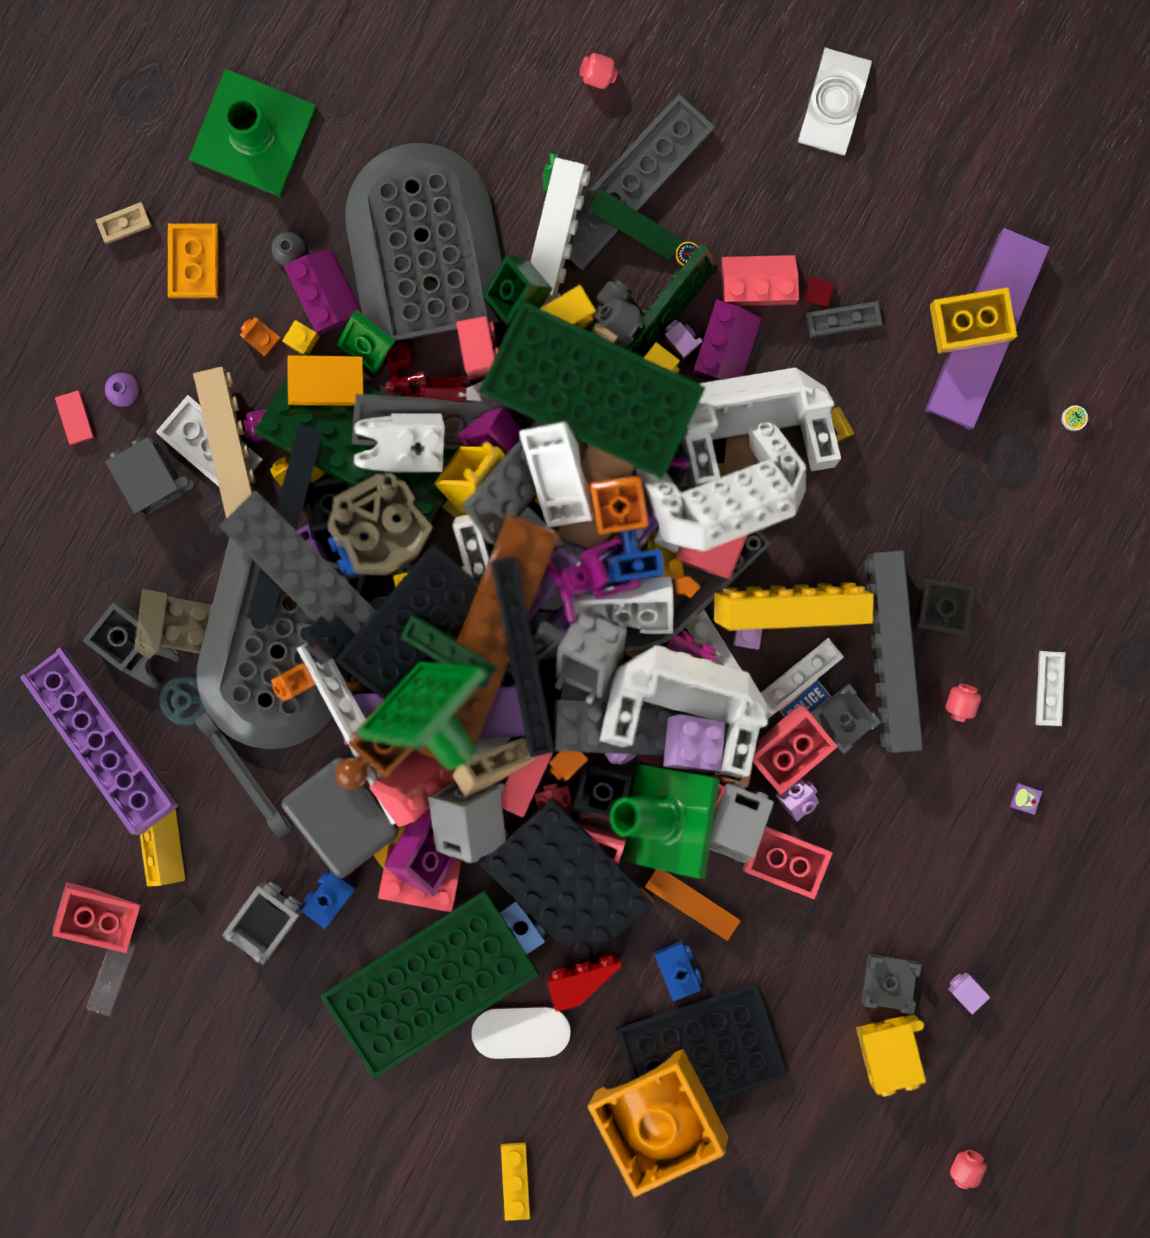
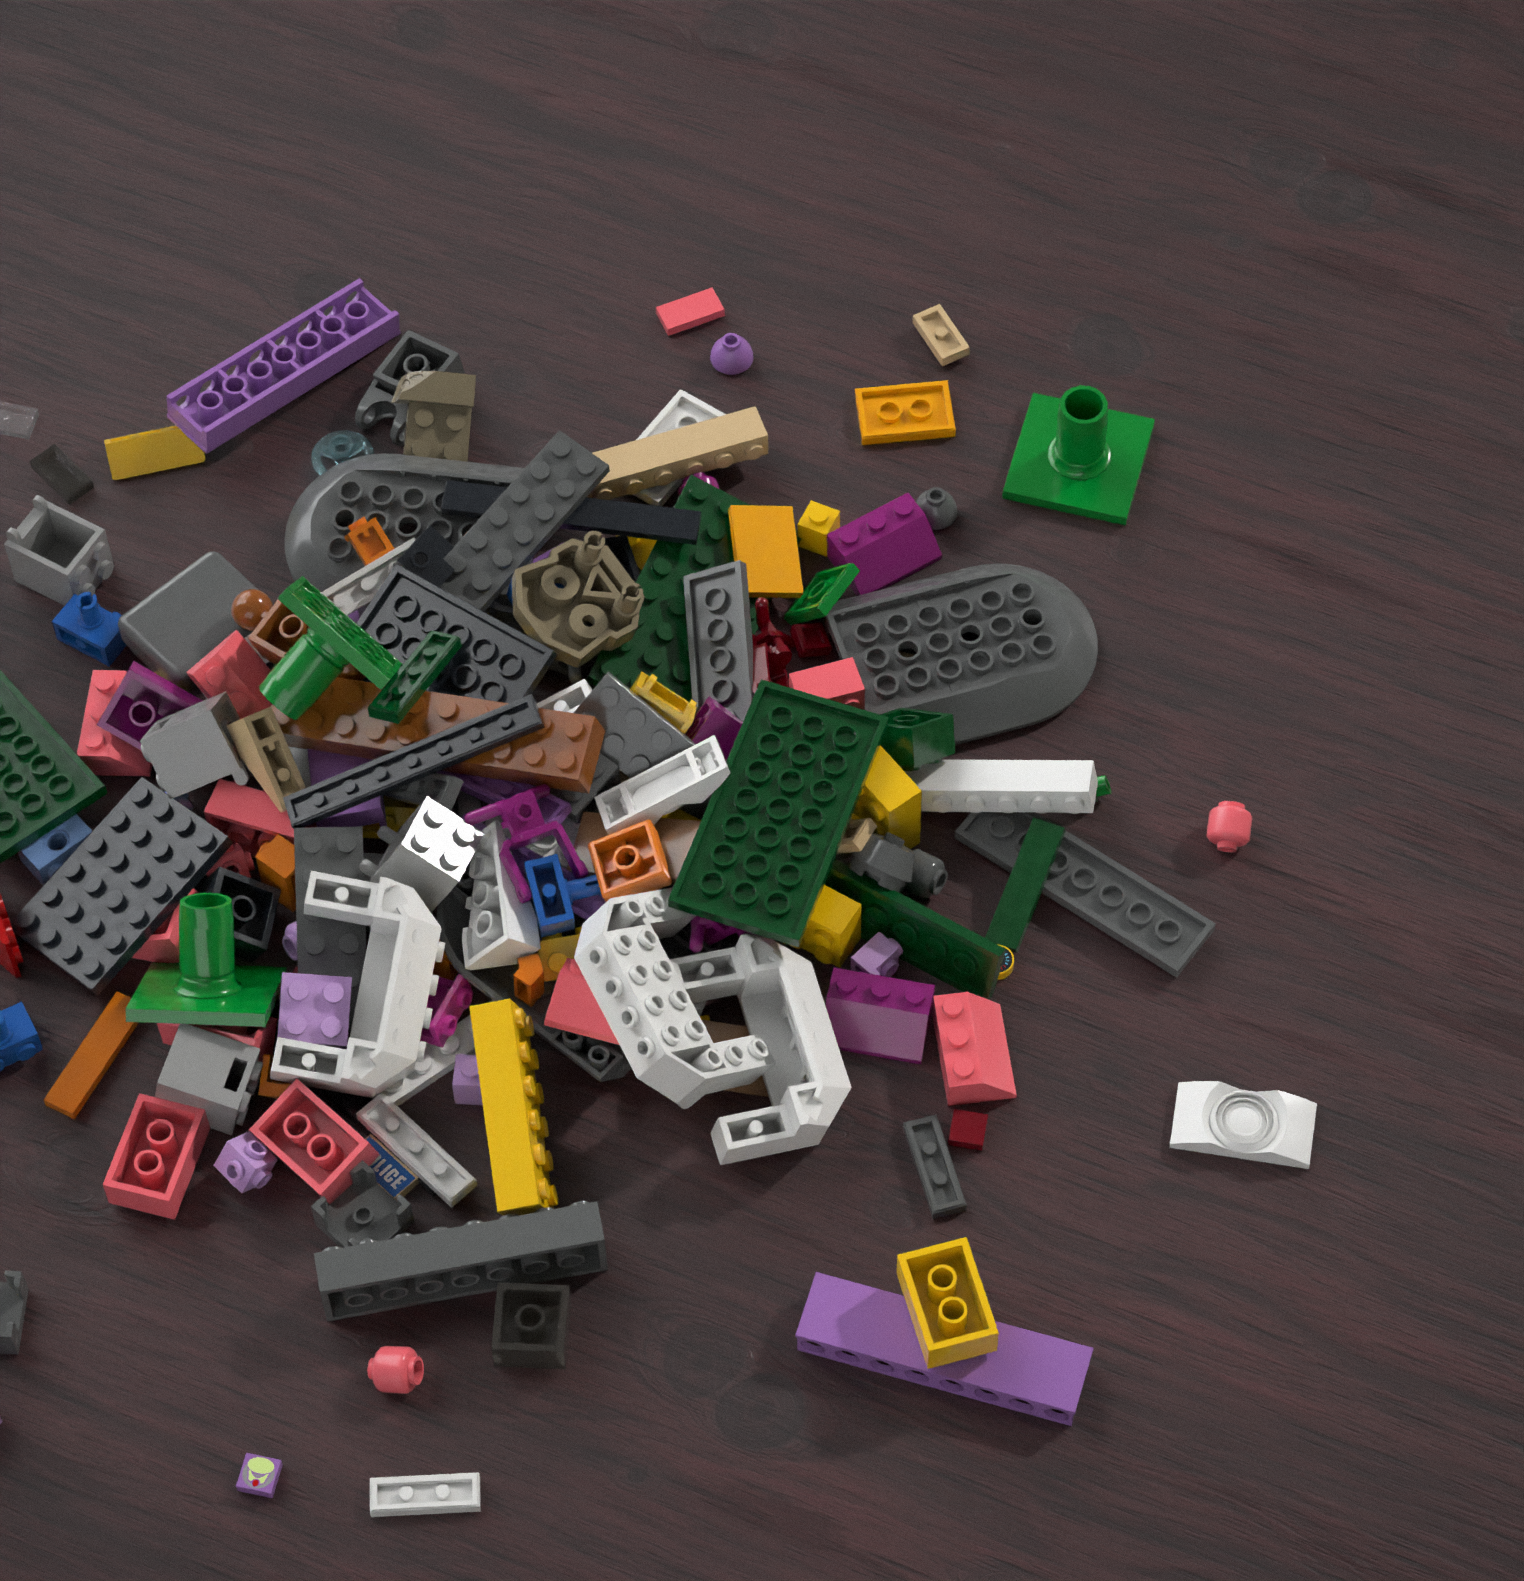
camera: 85 degrees right, 30 degrees down
(95, 918) = (62, 381): coral slope -> none
(146, 476) = (620, 380): dark grey container -> none
(259, 336) = (819, 486): orange bracket -> none
(274, 818) = (252, 520): dark grey piece -> none
(397, 446) = (689, 627): white brick -> none
(840, 424) = (781, 1169): yellow tile -> none
(1074, 418) = (830, 1488): tile -> none

